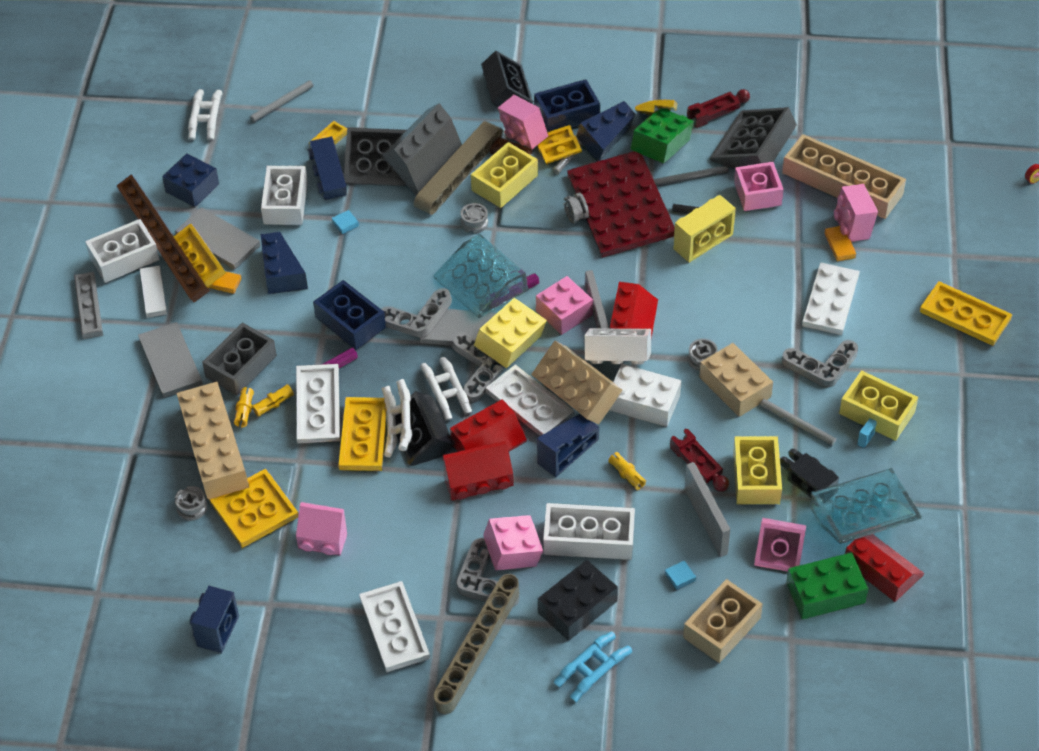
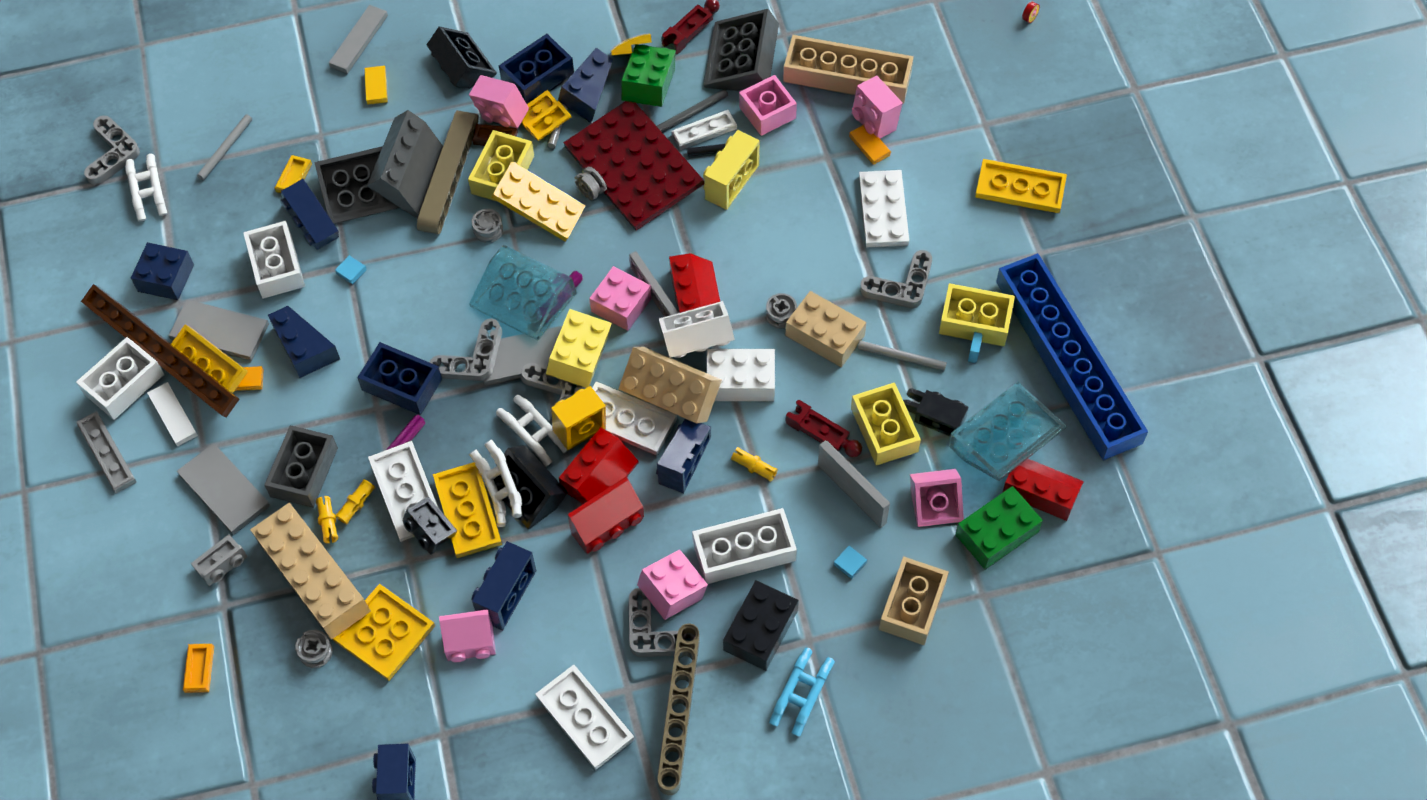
camera: 20 degrees left, 10 degrees up
(92, 490) = (198, 668): none -> light orange tile
(143, 412) = (219, 560): none -> light grey bracket
(193, 82) = (117, 152): none -> light grey beam
(324, 433) = (428, 525): none -> bracket
(369, 498) = (505, 583): none -> dark blue brick
(426, 47) = (358, 39): none -> light grey tile
(426, 85) = (376, 85): none -> yellow tile
(485, 383) = (578, 417): none -> yellow brick
(524, 209) = (538, 201): none -> yellow plate
(693, 193) = (704, 129): none -> white tile
(953, 466) = (1072, 357): none -> blue brick

